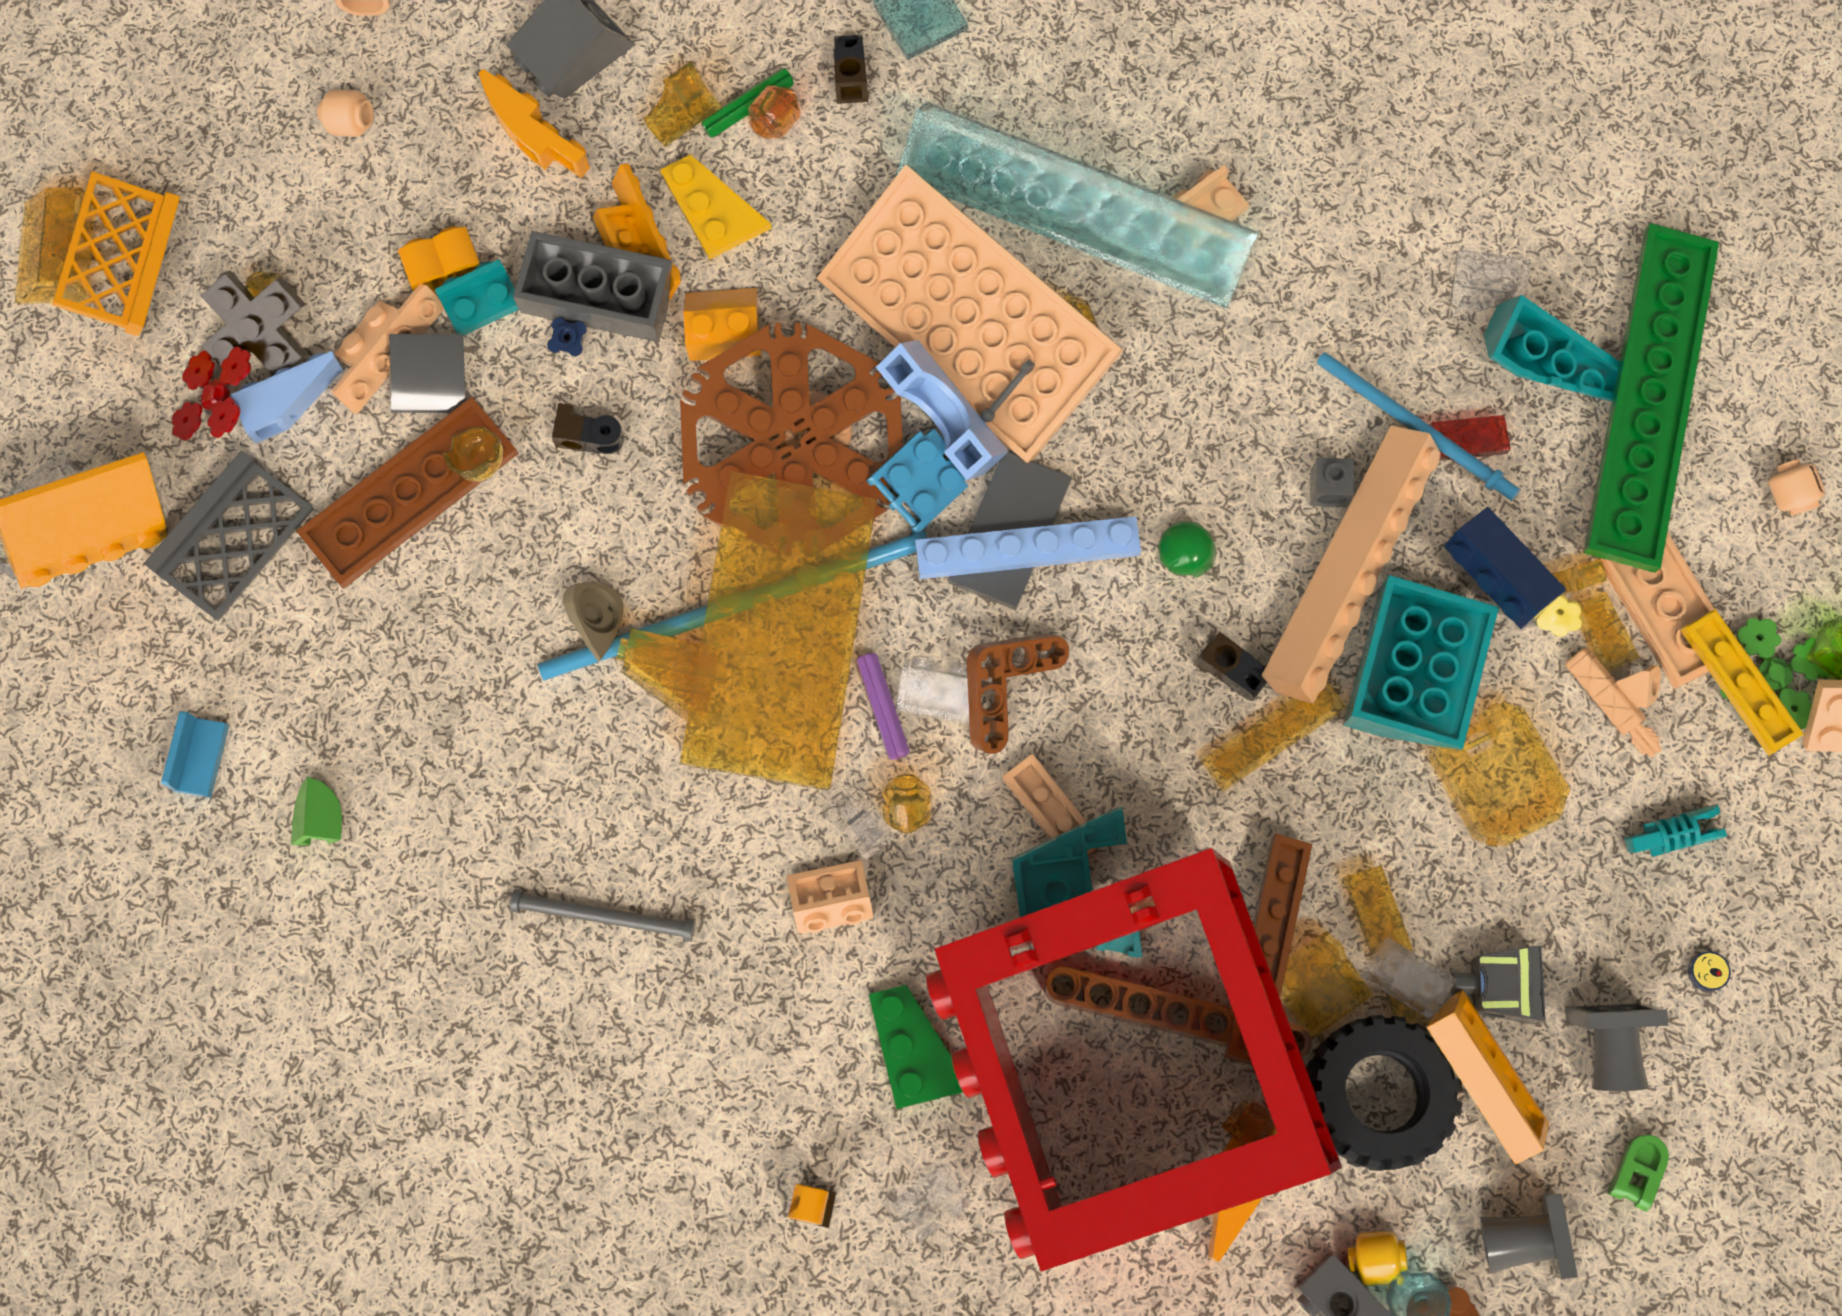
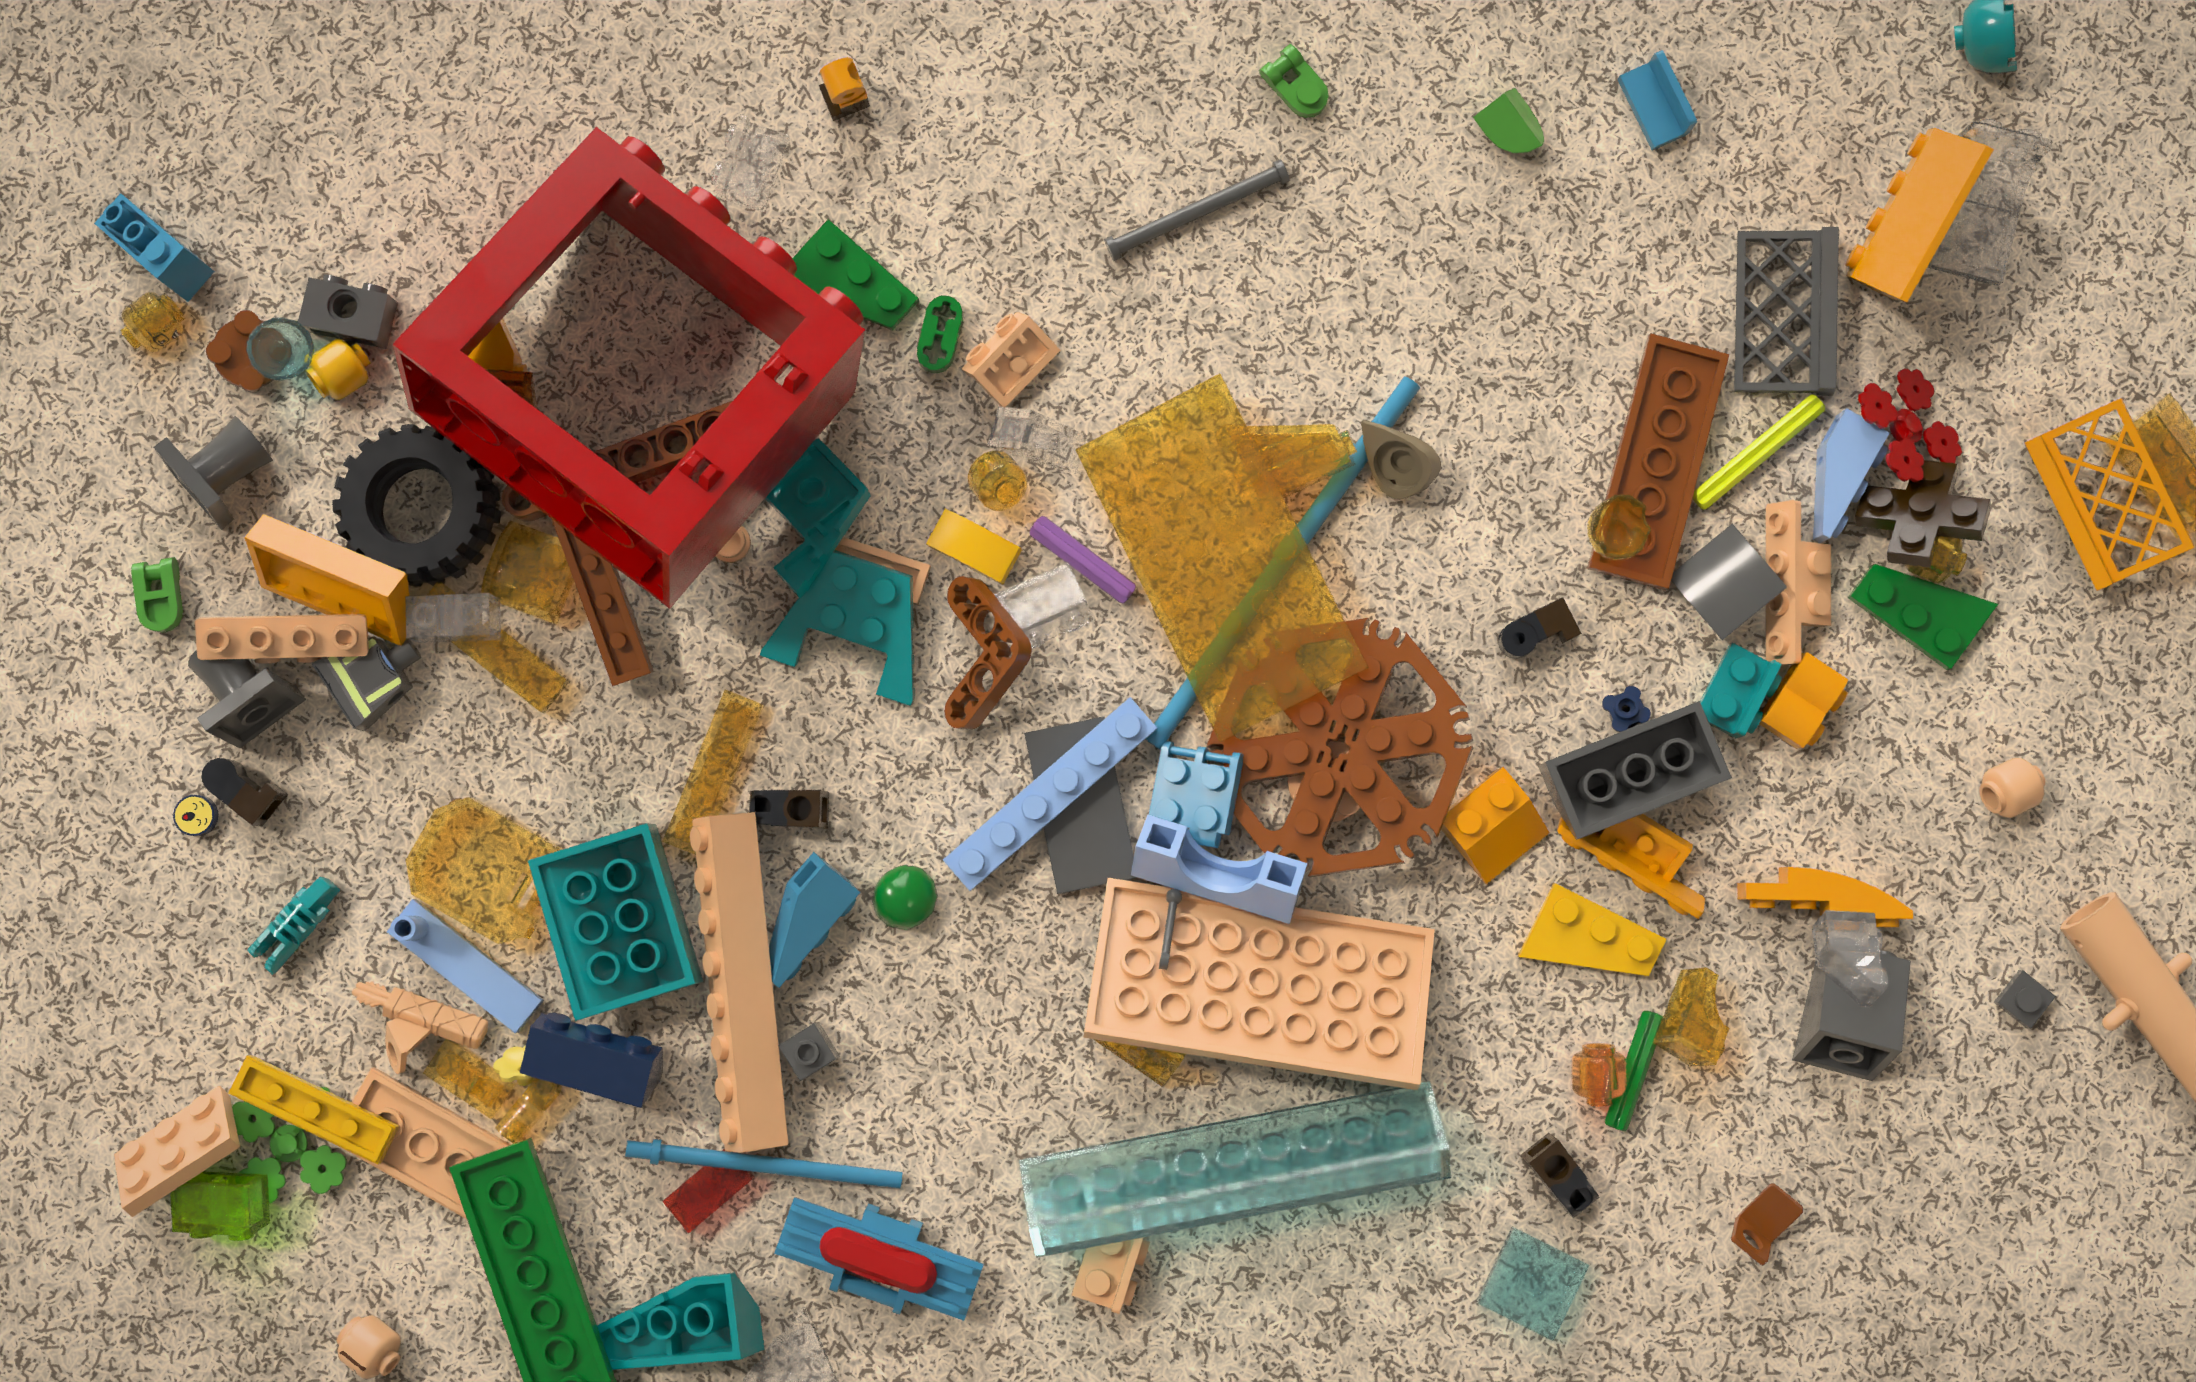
camera: 145 degrees right, 10 degrees up
(309, 267) = (1922, 612): none -> green wing
(330, 452) = (1758, 451): none -> neon yellow axle
(452, 949) = (1307, 93): none -> bright green plate
(543, 65) = (1849, 953): none -> clear slope
(865, 947) = (949, 335): none -> green beam
(958, 770) = (974, 546): none -> yellow slope
(1078, 781) = (859, 605): none -> teal wing
(1269, 580) = (808, 910): none -> dark azure slope
(1373, 310) = (882, 1252): none -> dark azure piece
(1558, 1053) = (282, 637): none -> light nougat bracket
(1559, 717) = (465, 965): none -> light blue piece
(1663, 964) = (230, 784): none -> leg

